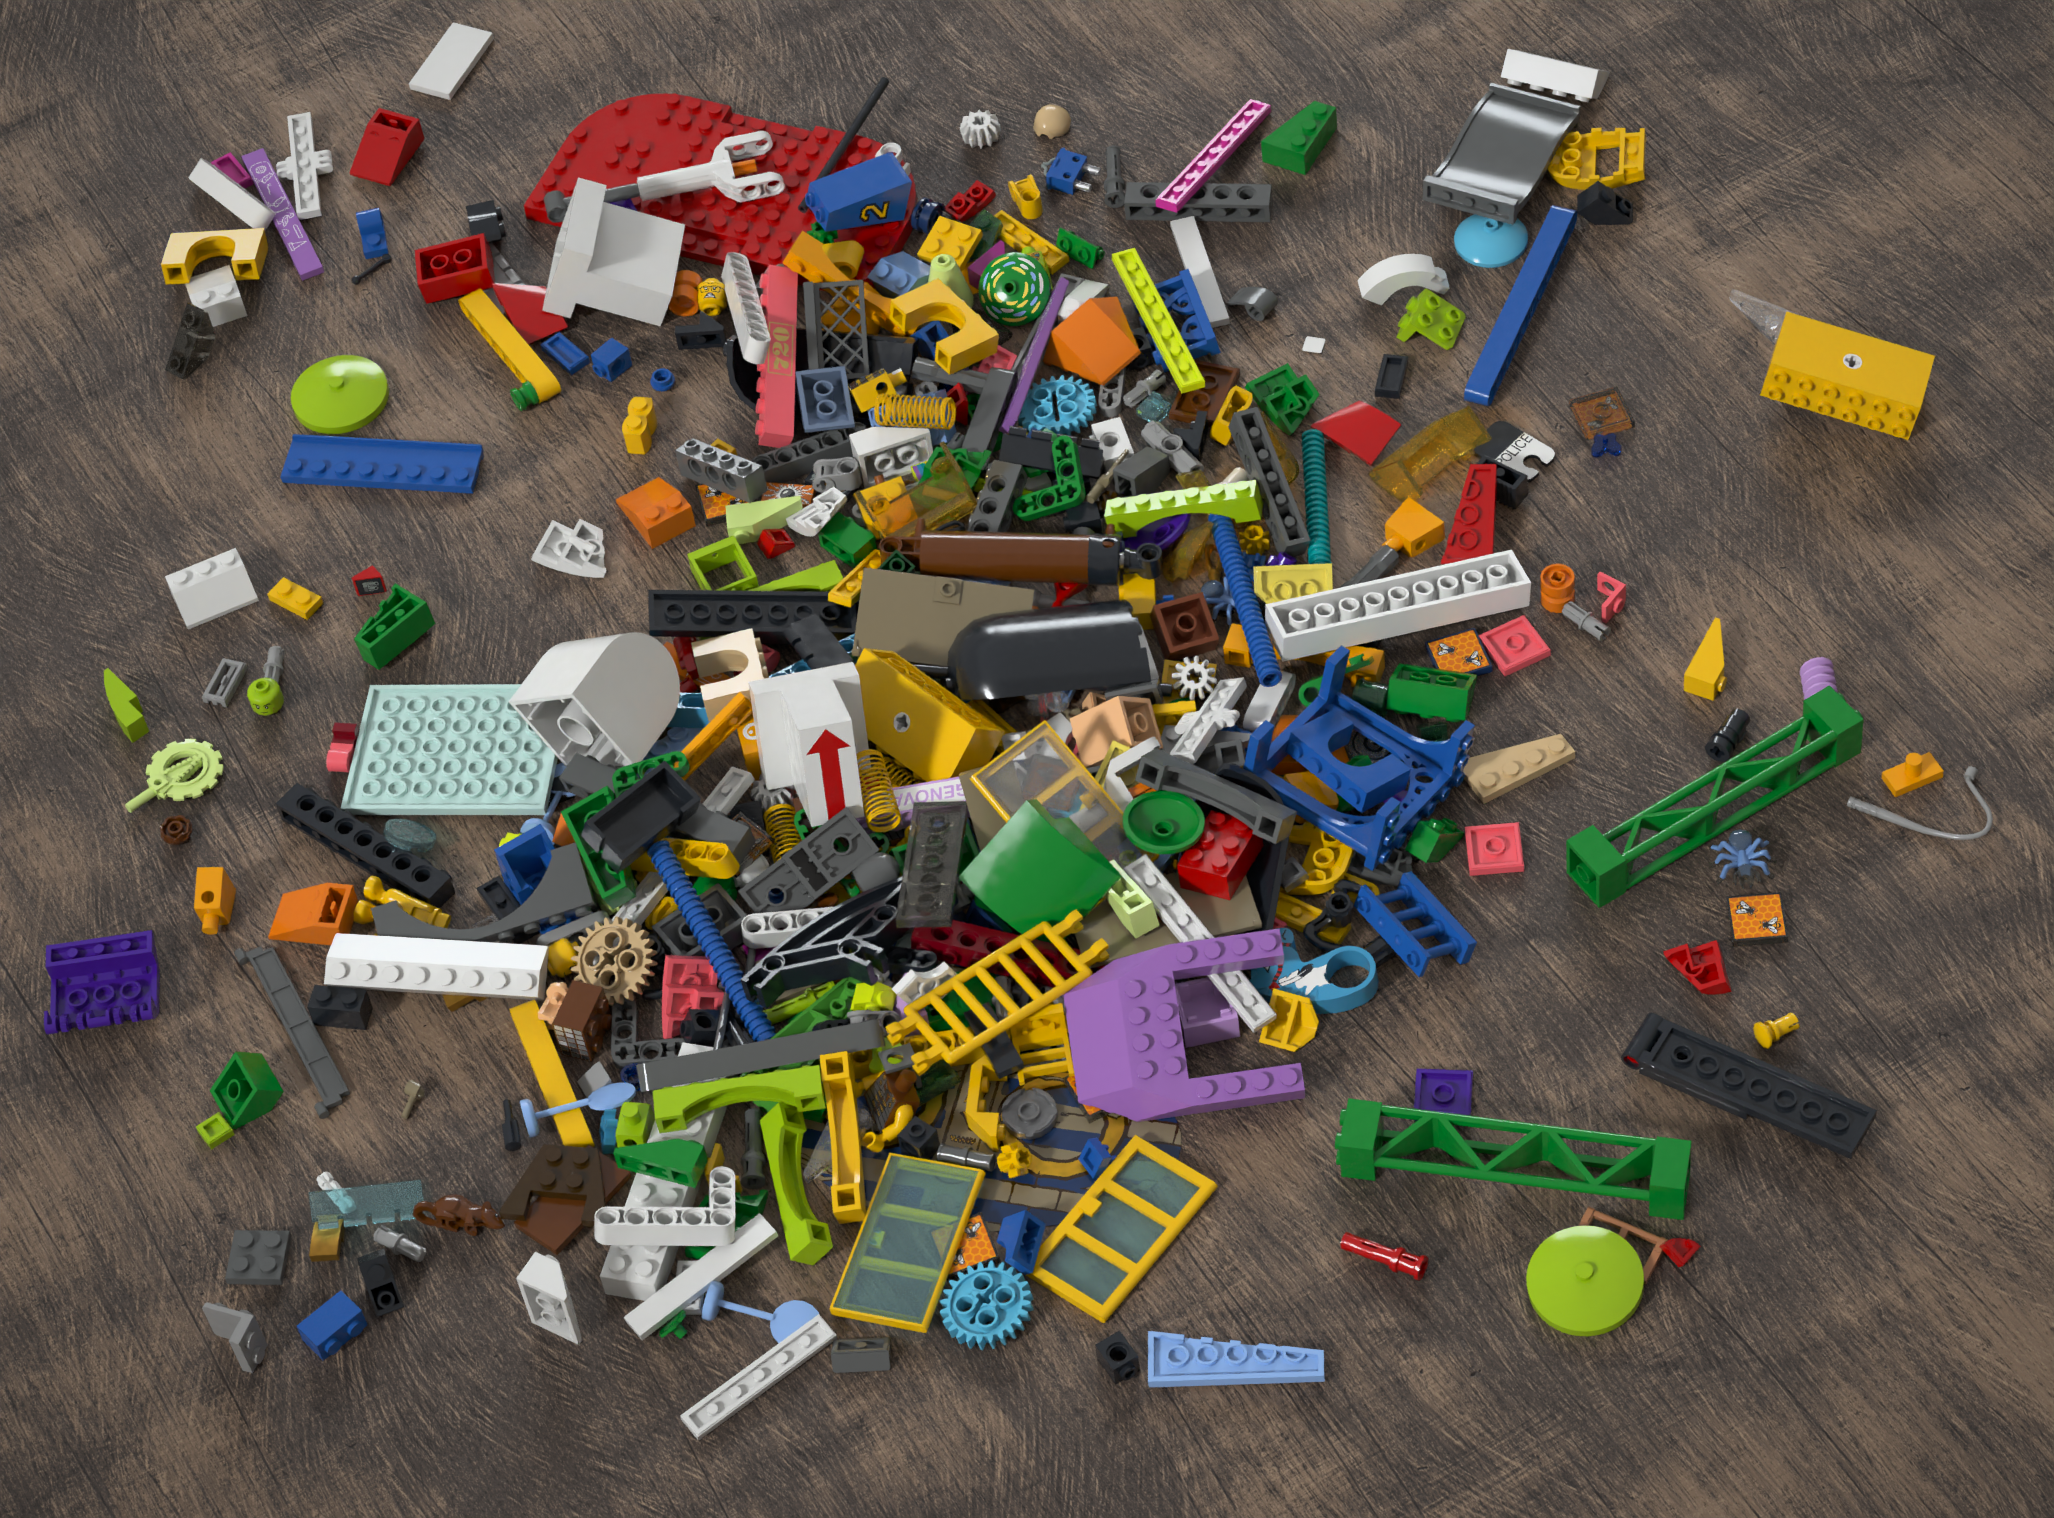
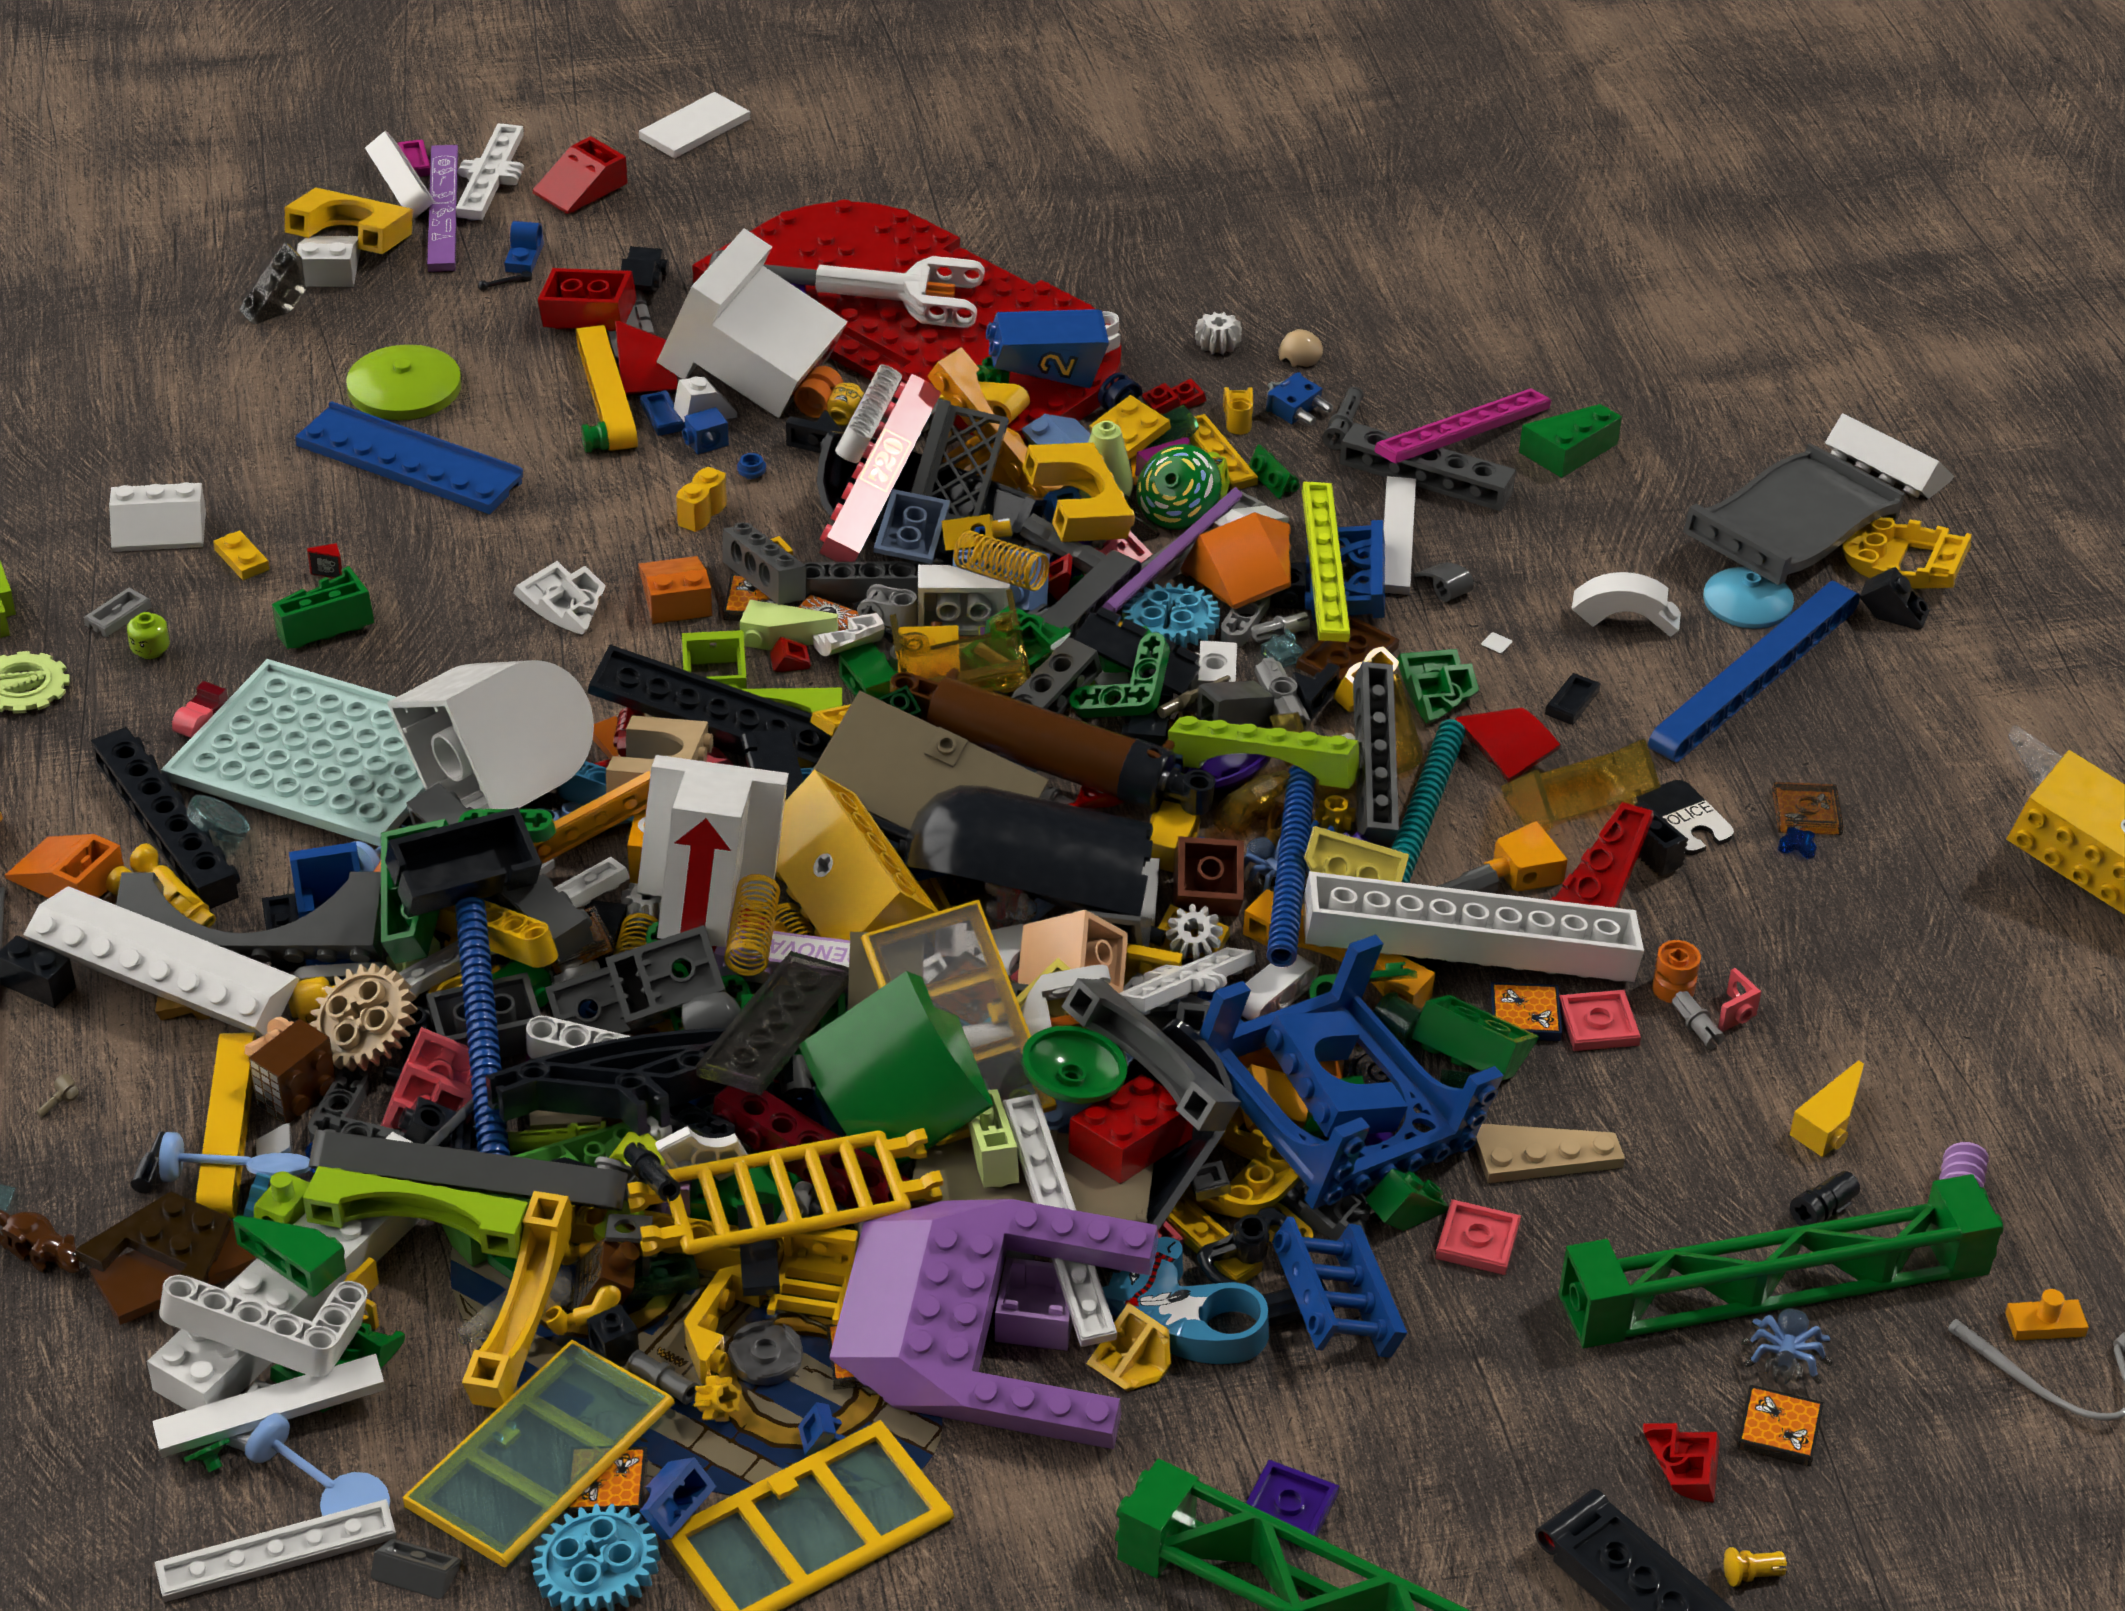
camera: 10 degrees right, 10 degrees down
(273, 667) = (176, 612): light grey axle -> none
(548, 1297) = (72, 1362): white slope -> none
(593, 333) = (699, 395): none -> white slope
(753, 1158) = (409, 1292): dark grey pin -> none
(783, 1135) = (421, 1395): lime arch -> none
(850, 134) = (1083, 288): black piece -> none
(892, 1008) = (647, 1167): none -> black pin
(1432, 318) = (1645, 653): lime bracket -> none

